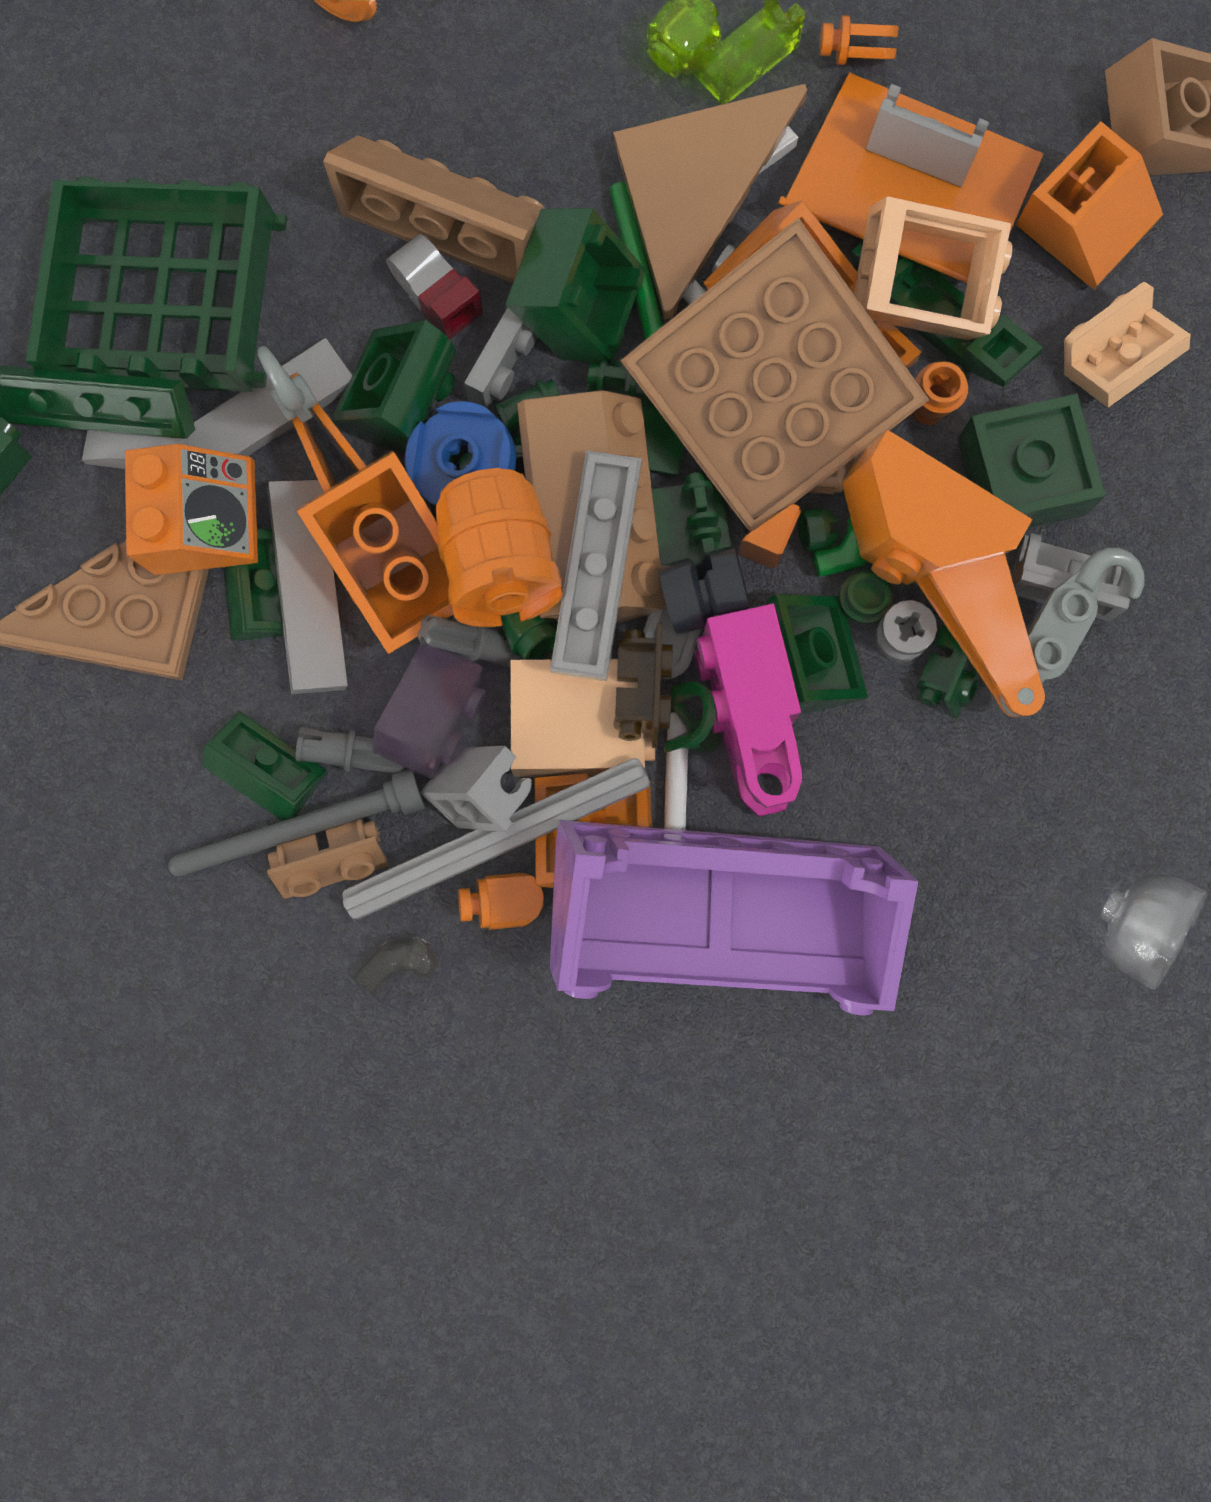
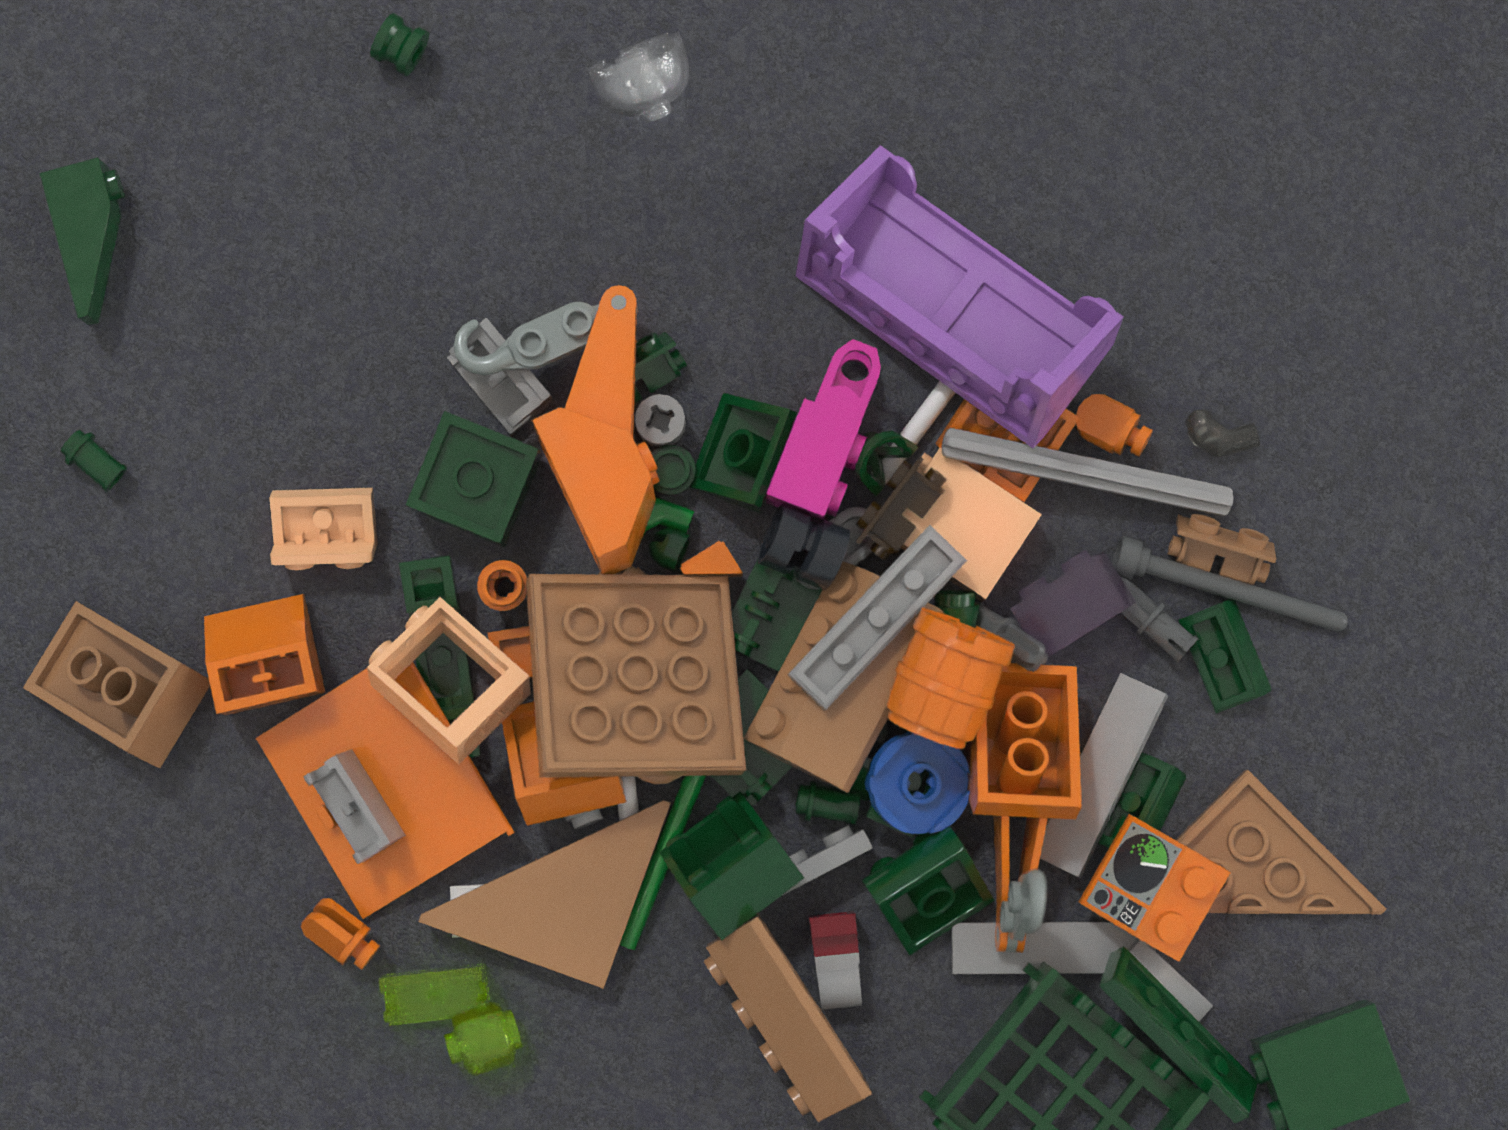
camera: 145 degrees left, 5 degrees up
(471, 789) = (1080, 518): light grey hinge -> none

